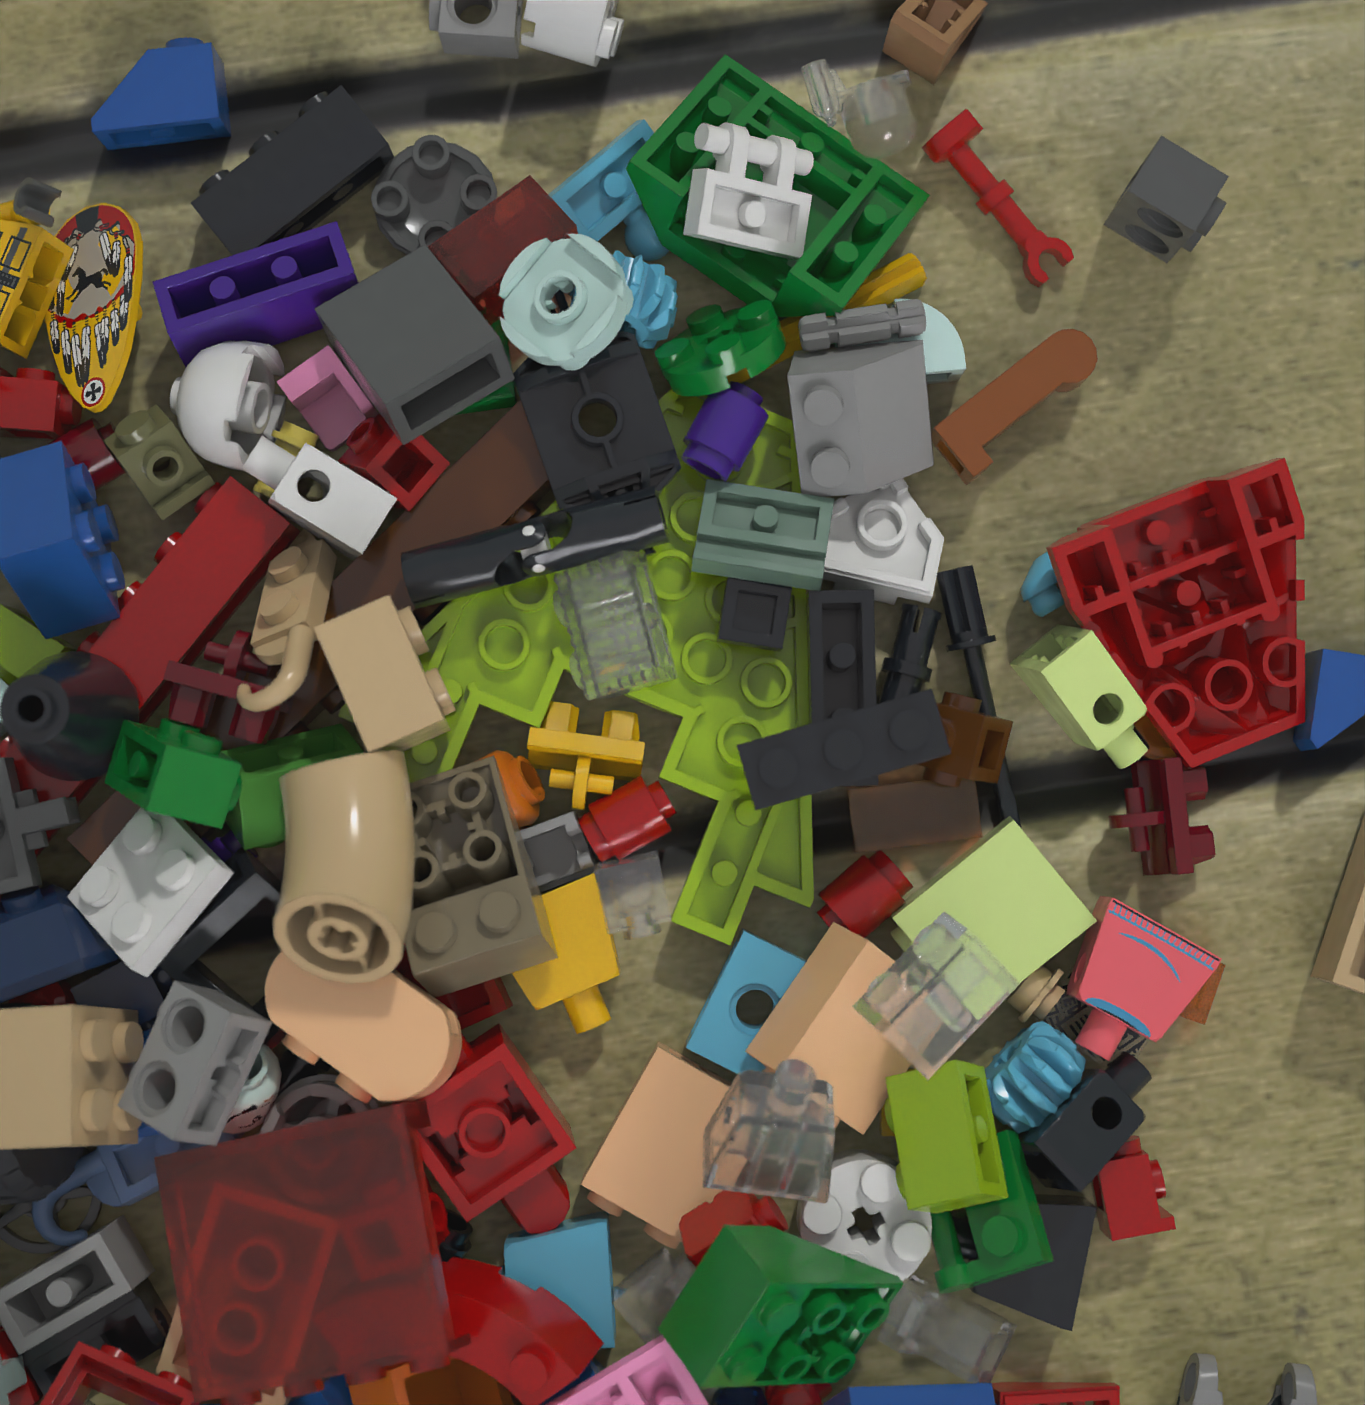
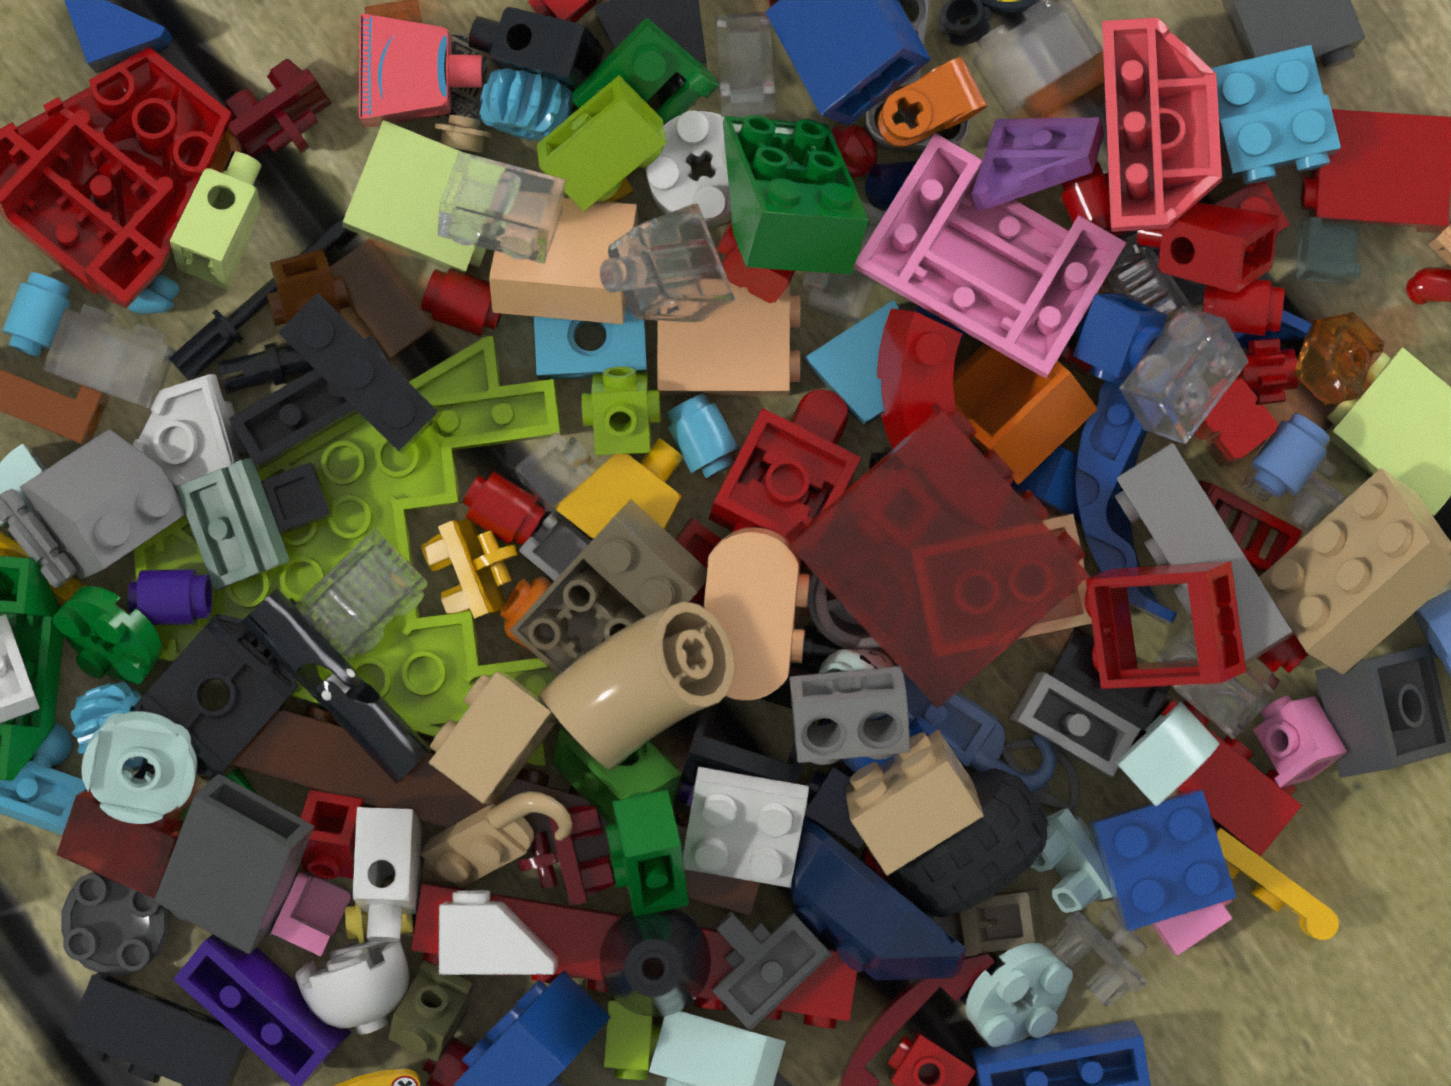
camera: 120 degrees left, 0 degrees up
(178, 559) = (488, 939): none -> white slope
(587, 1064) = (702, 436): none -> medium azure brick
(656, 997) = (621, 411): none -> lime brick
(1006, 504) = (109, 357): none -> clear brick
(1090, 458) = (36, 313): none -> medium azure brick

